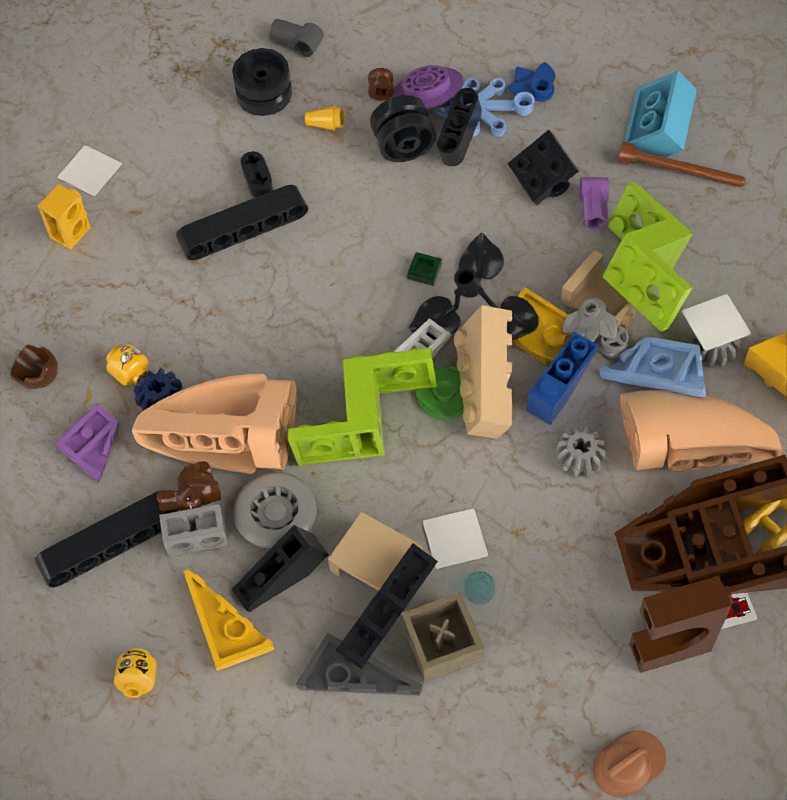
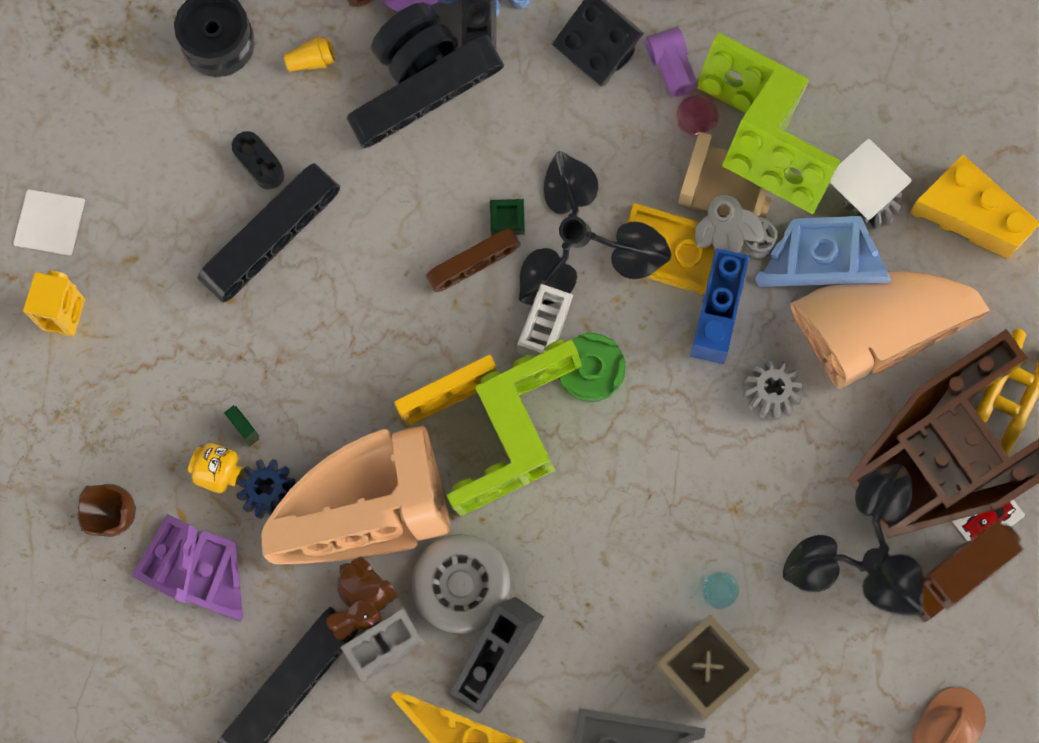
camera: 20 degrees left, 15 degrees up
(63, 415) = (169, 558): none -> medium lavender wing
(161, 343) = (242, 425): none -> dark green tile
(318, 364) = (443, 392): none -> yellow tile
(369, 551) = (599, 600): tan panel -> none
(373, 288) = (473, 260): none -> reddish brown beam
(387, 606) = (636, 658): black slope -> none
(397, 161) = (425, 91): none -> black beam
(455, 538) = (670, 540): white sticker -> none
(485, 372) = (633, 333): tan wedge -> none
(600, 235) = (692, 124): none -> clear pink plate
(618, 608) = (892, 581): none -> black plant

